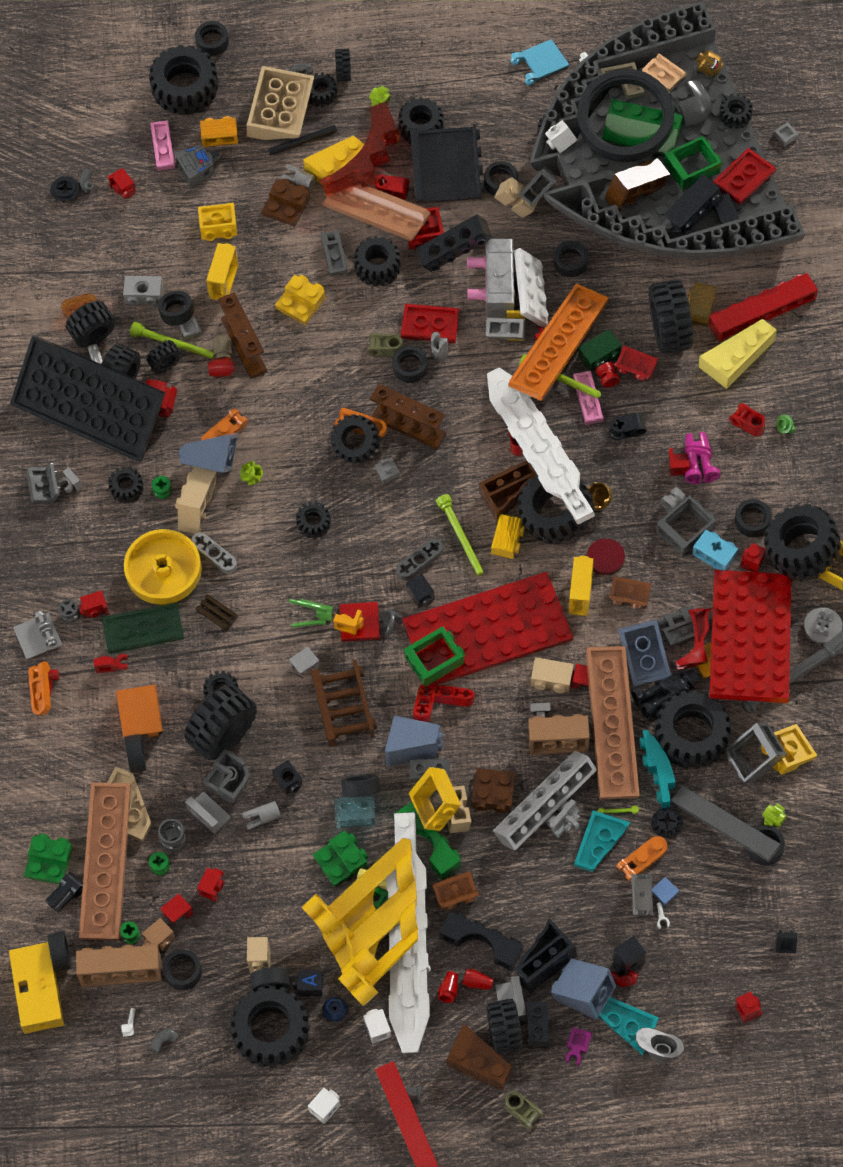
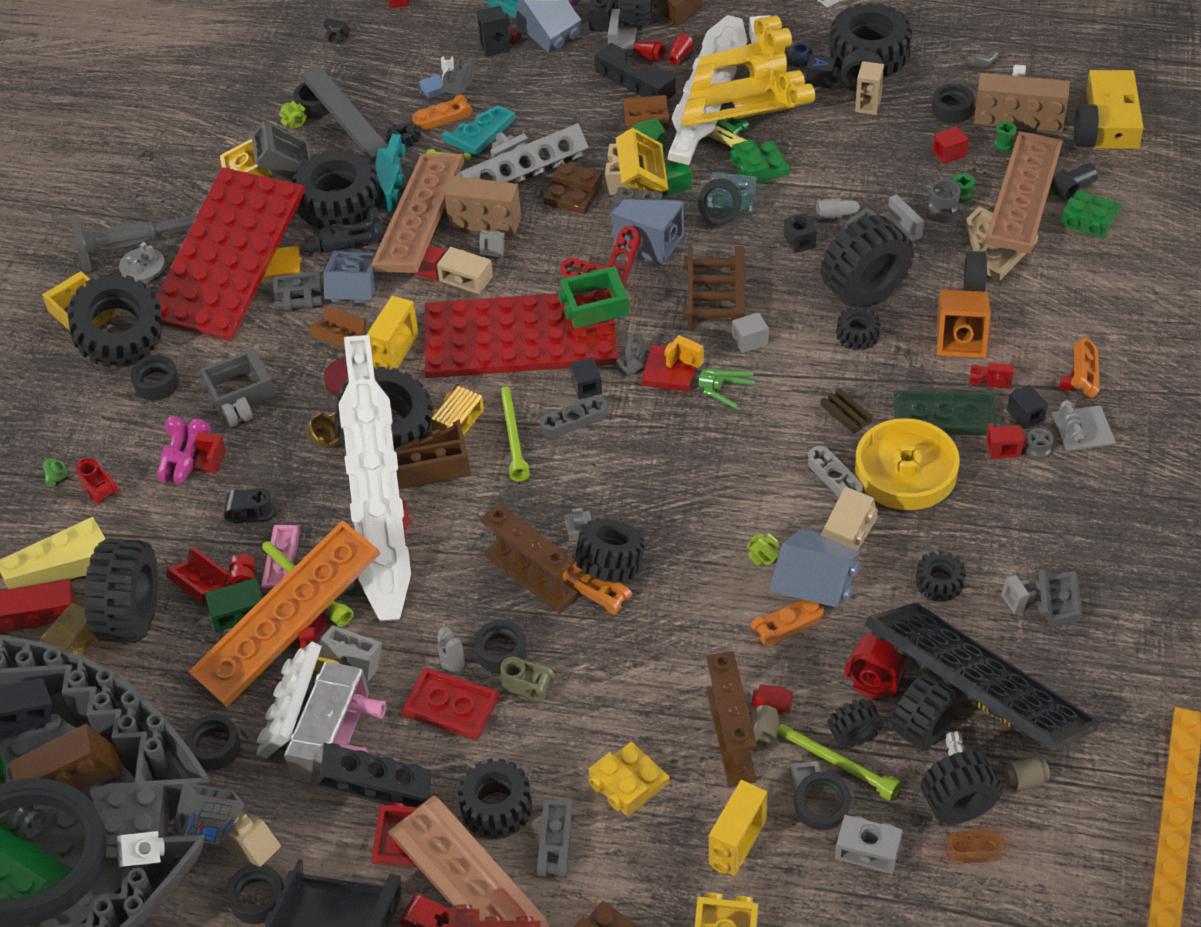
camera: 165 degrees left, 15 degrees down
(81, 640) = (1027, 406): none -> black brick
(159, 935) = (976, 128): medium nougat brick -> none
(165, 490) = (890, 562): green wheel -> none
(211, 884) = (908, 159): red brick -> none
(317, 529) = (697, 494): black tyre -> none
(545, 957) = (574, 47): black wedge -> none
(701, 626) = (297, 251): red animal -> none
(715, 551) = (214, 345): medium azure brick -> none
(753, 558) = (179, 334): red brick -> none

